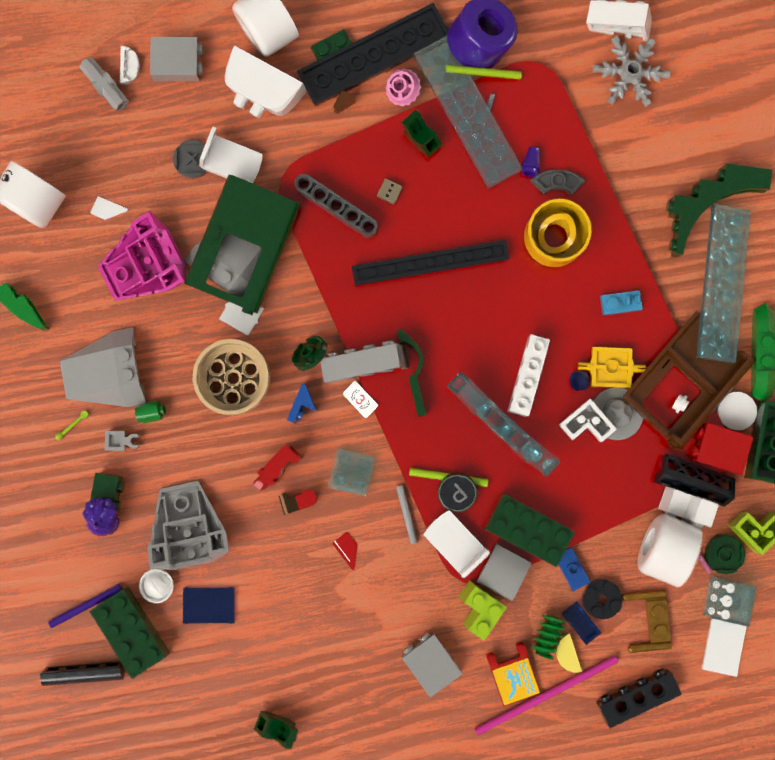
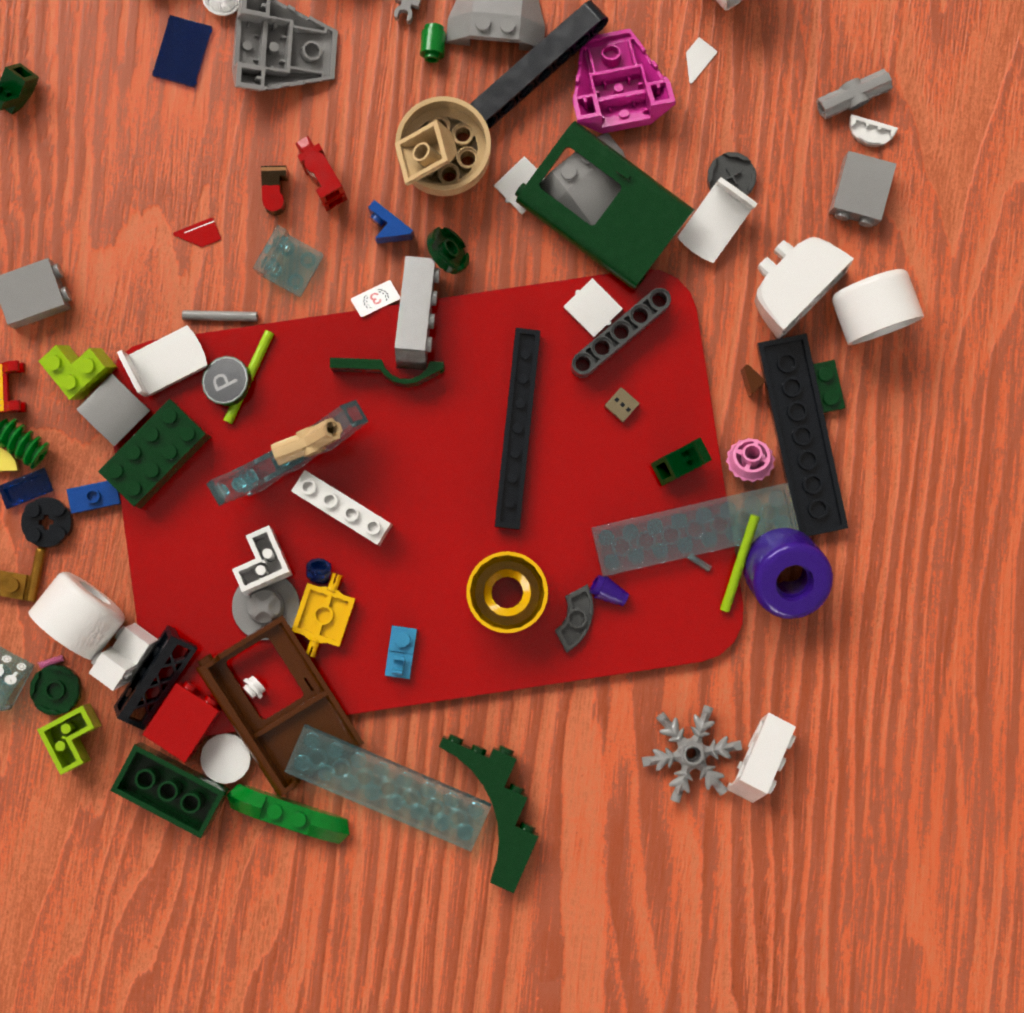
camera: 105 degrees right, 0 degrees up
(144, 324) = (540, 63): none -> black beam
(243, 385) = (425, 151): none -> tan slope
(322, 233) = (593, 308): none -> white piece
(491, 410) = (307, 441): none -> tan piece

